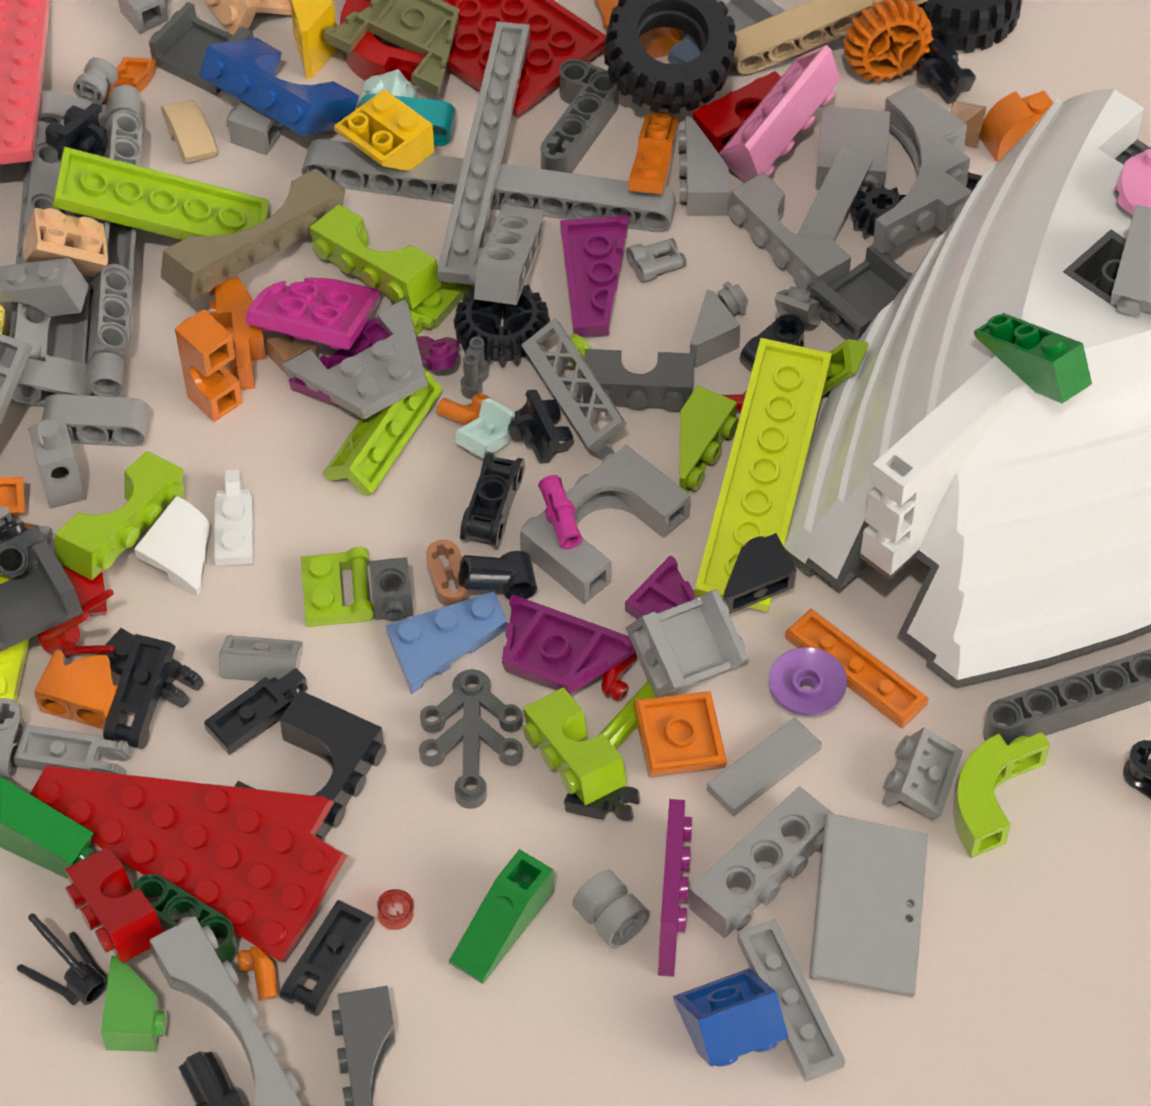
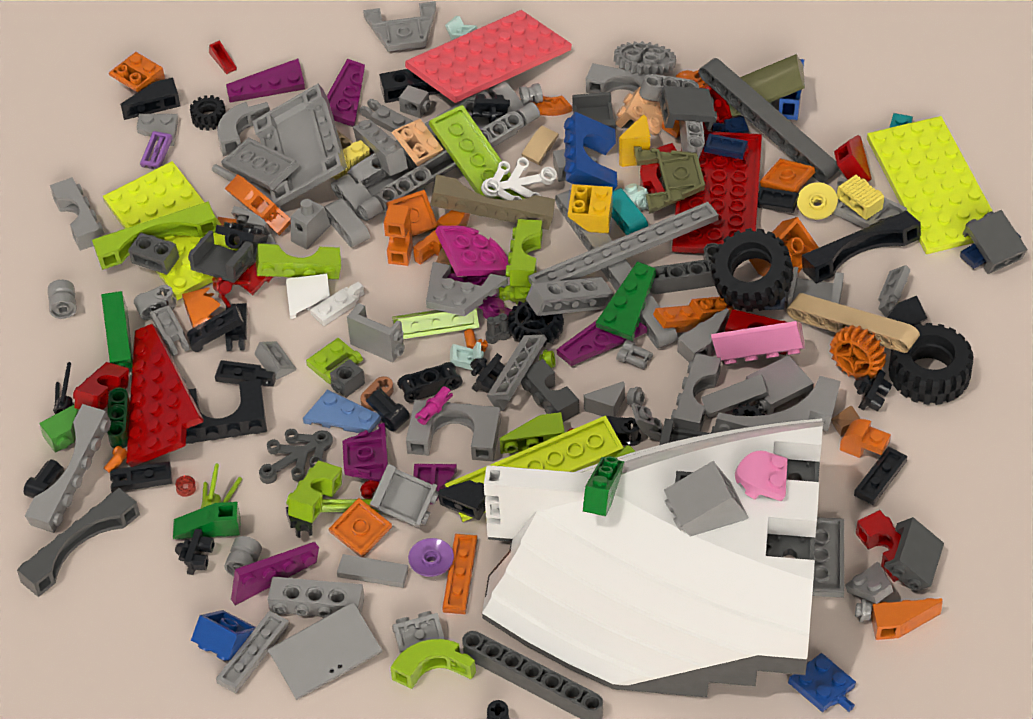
camera: 55 degrees right, 5 degrees down
(154, 334) = (420, 212): none -> orange tile
(227, 216) = (514, 182): none -> white plant
(354, 508) = (374, 336): none -> light grey panel
(466, 888) = (213, 497): none -> lime plant
(536, 971) = (191, 551): none -> black hips
(580, 205) = (625, 307): none -> green wing

